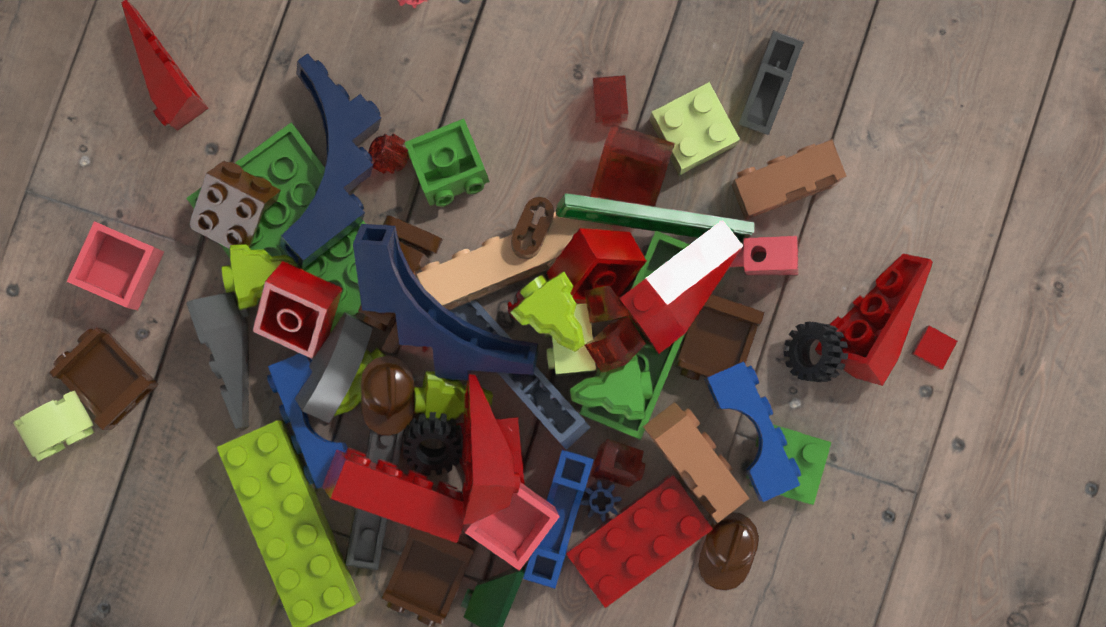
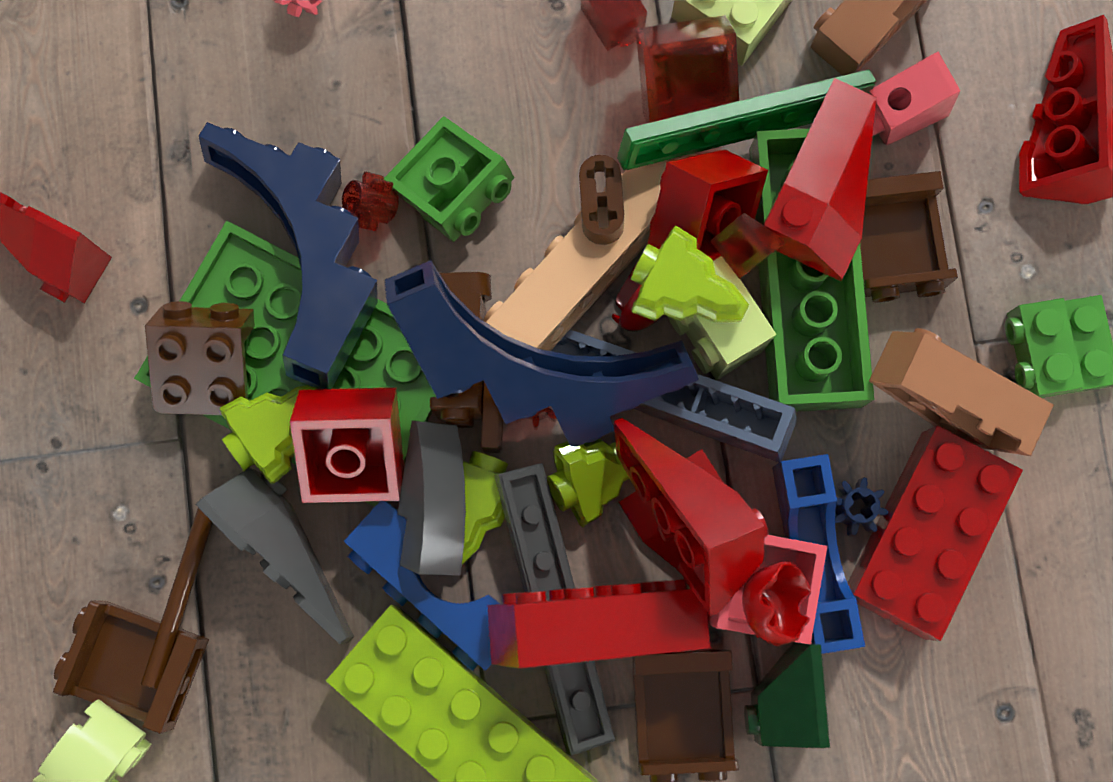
camera: 30 degrees left, 5 degrees down
(115, 266) = (79, 508): coral piece -> none
(149, 352) = (177, 600): none -> reddish brown bar
(387, 395) = (519, 503): reddish brown piece -> none
(429, 458) = (621, 555): black tyre -> none
(506, 535) = (773, 603): none -> red hair
(615, 345) = (786, 290): clear red brick -> none
(617, 390) = (815, 346): bright green rock -> none
(627, 456) = (856, 447): clear red brick -> none
(728, 552) = (1048, 497): reddish brown piece -> none
(771, 470) = (1057, 354): blue arch -> none
(800, 352) = (1055, 189): black tyre -> none

